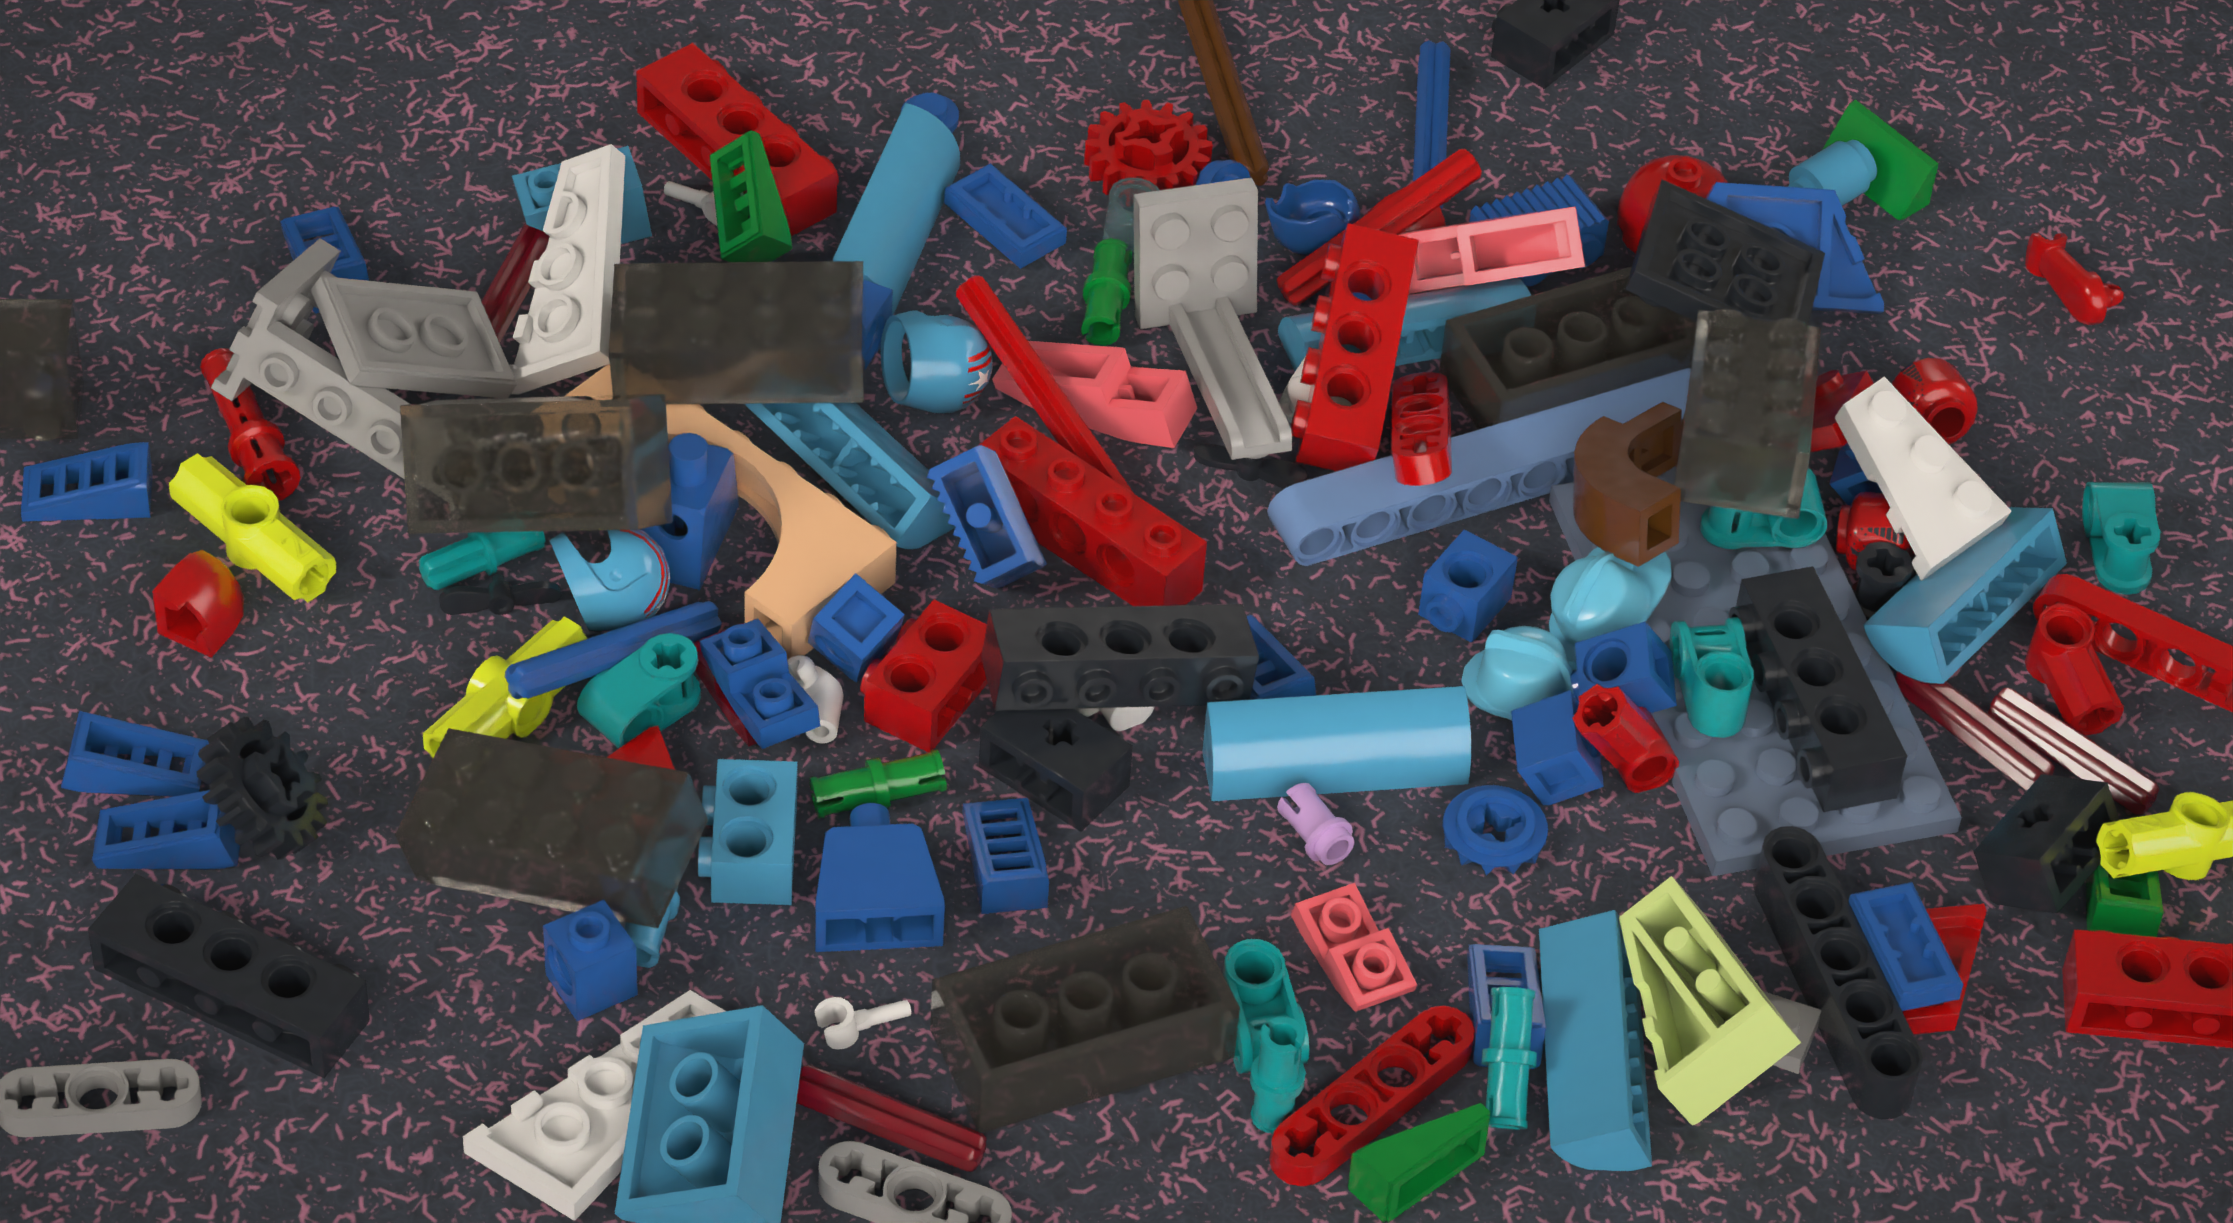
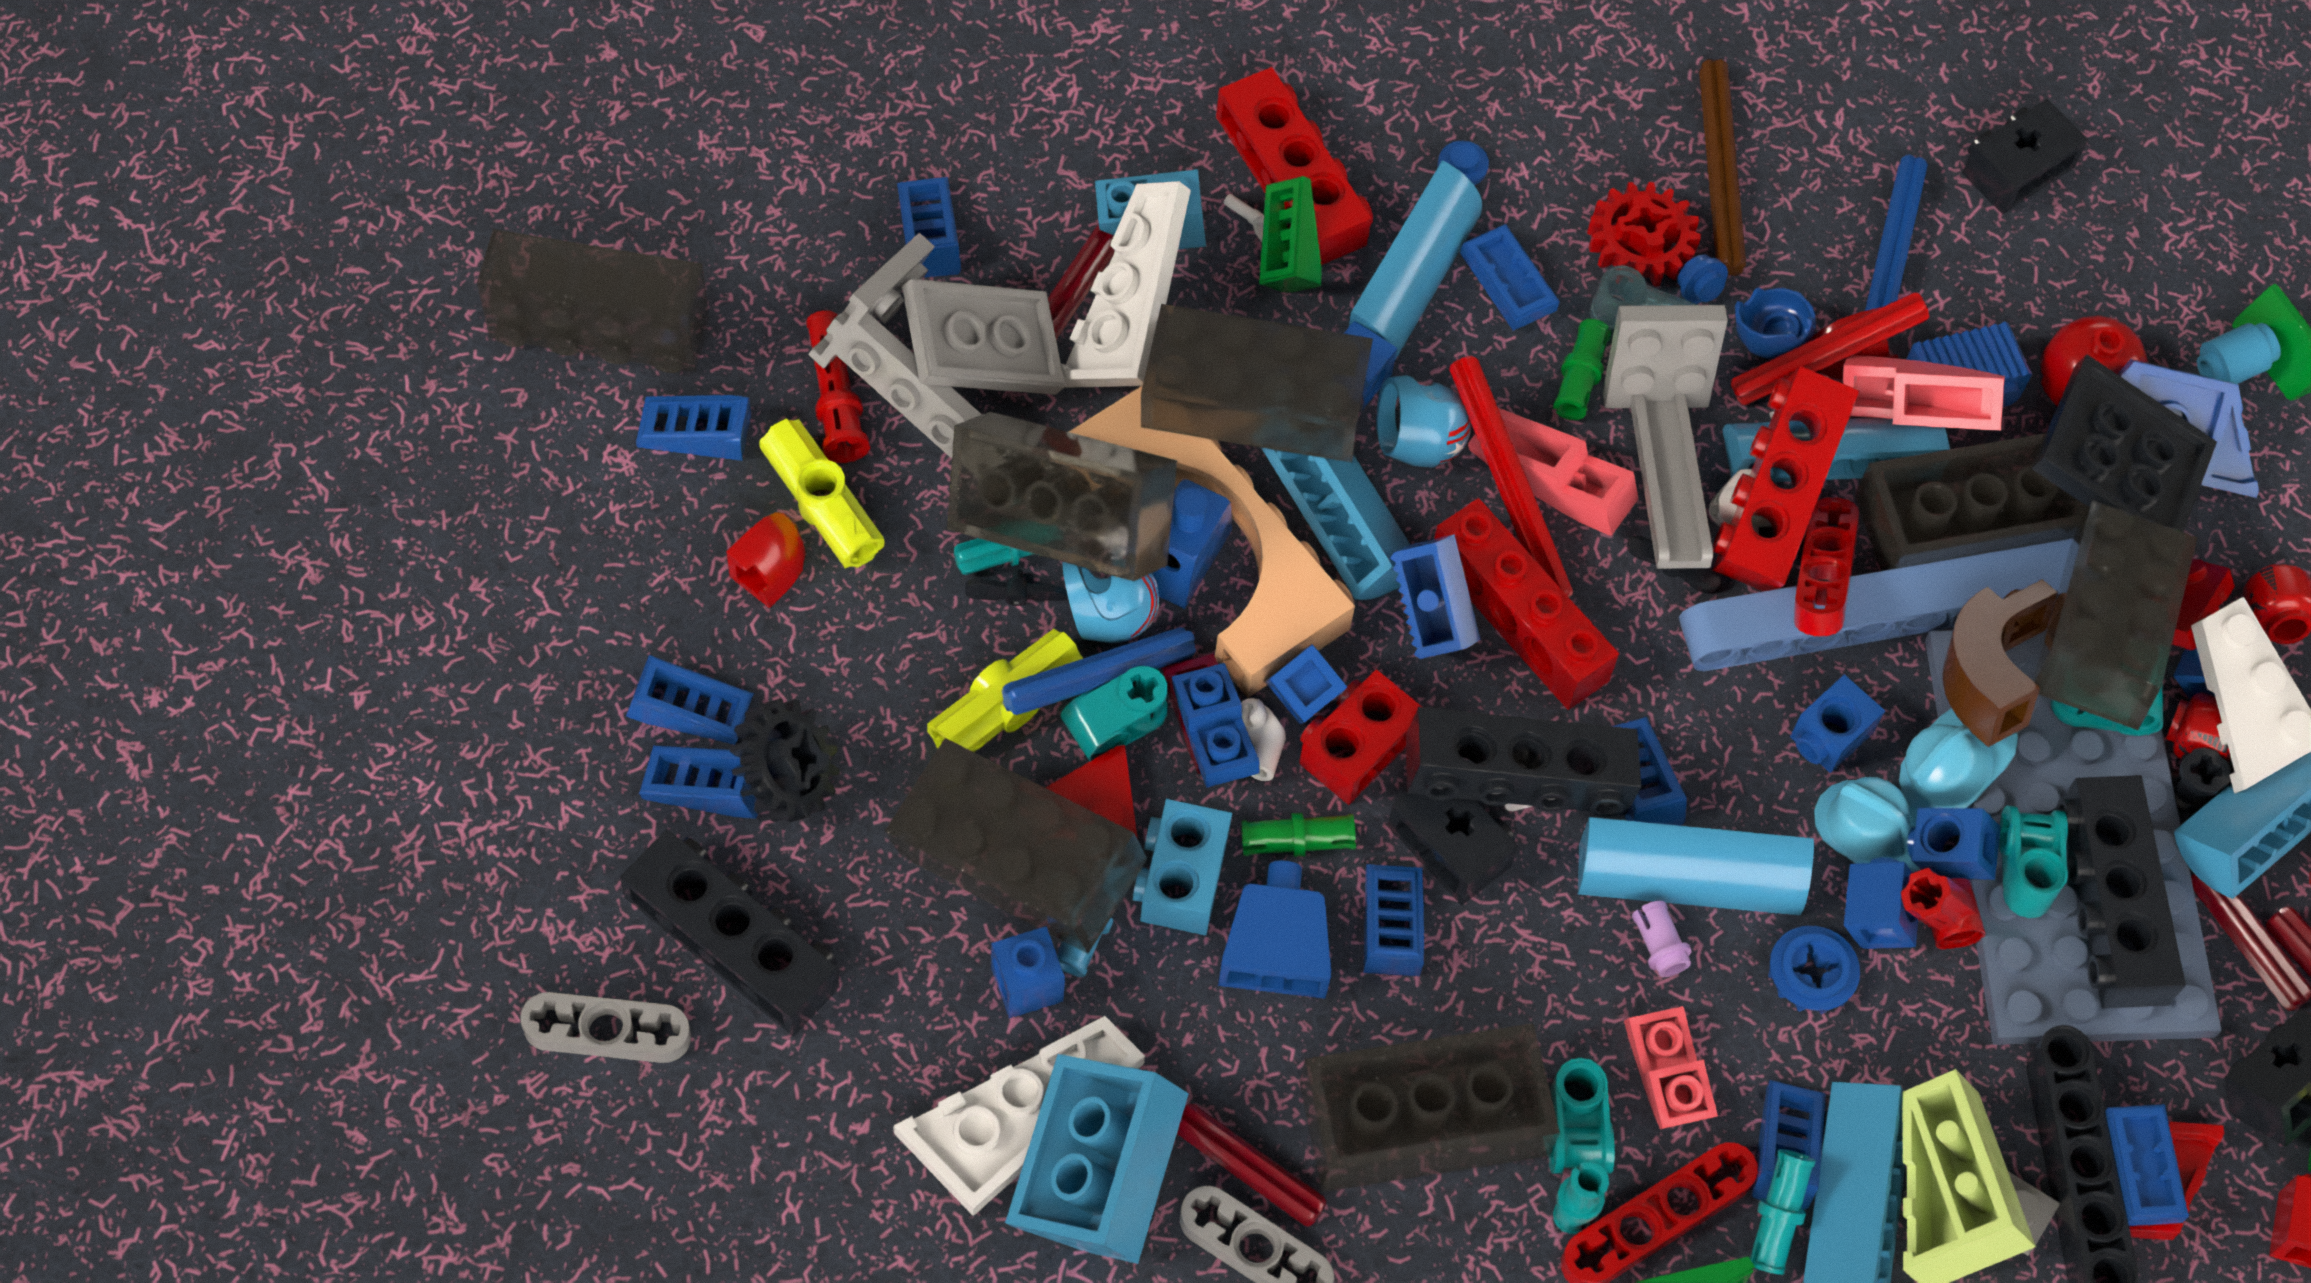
camera: 10 degrees right, 15 degrees up
(851, 1022) = (1241, 1062): white hand -> none

